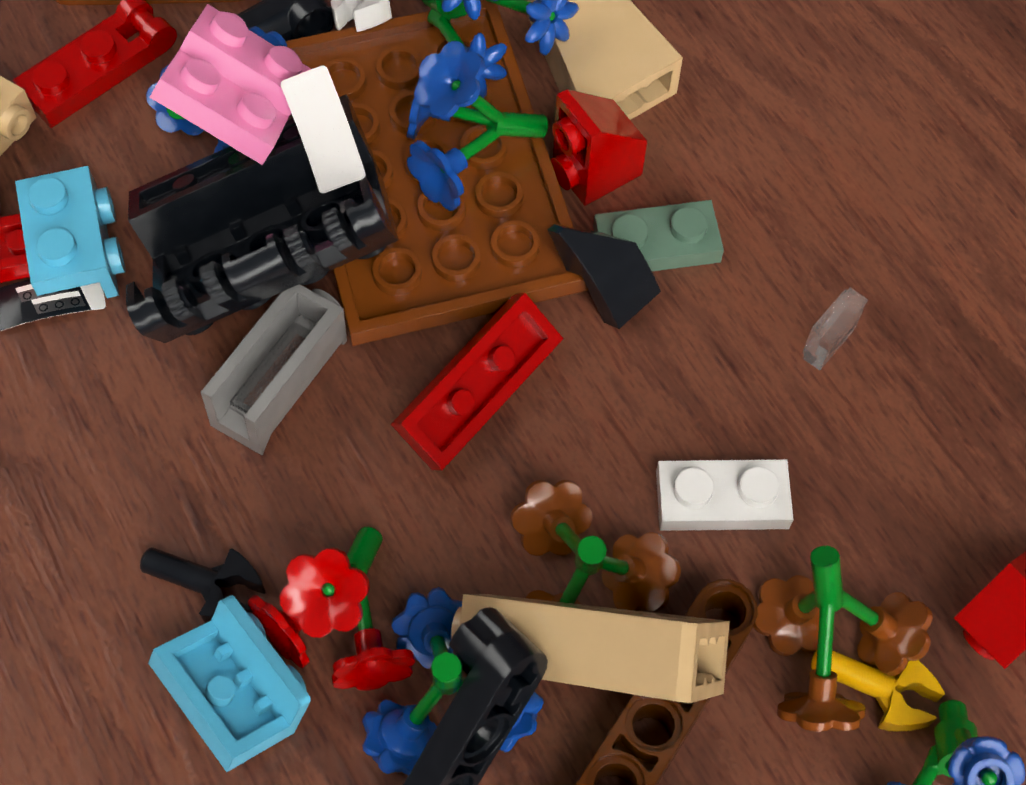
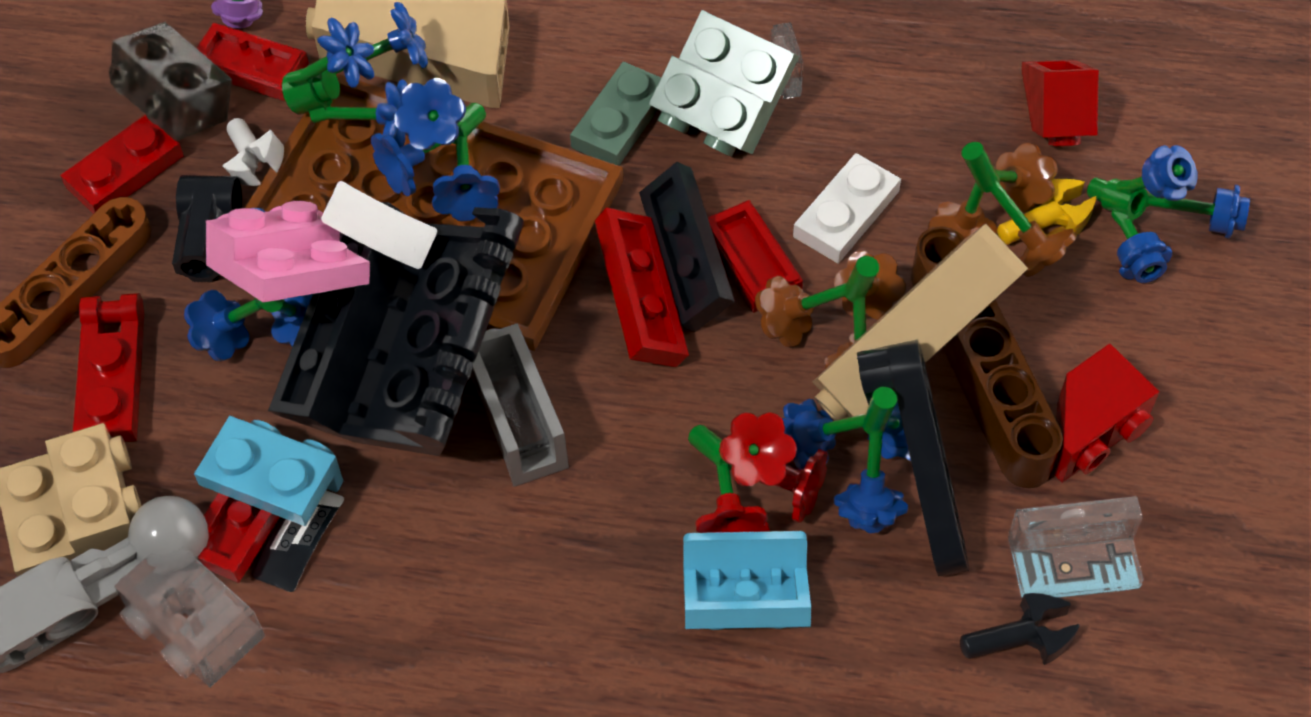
camera: 50 degrees left, 5 degrees down
(201, 578) = (645, 560): black bar -> none
(553, 389) = (687, 247): none -> black plate
(594, 145) = (523, 94): red slope -> none
(602, 445) = (750, 251): none -> red tile
(611, 270) = (626, 147): black slope -> none
(749, 295) = (723, 84): none -> plate

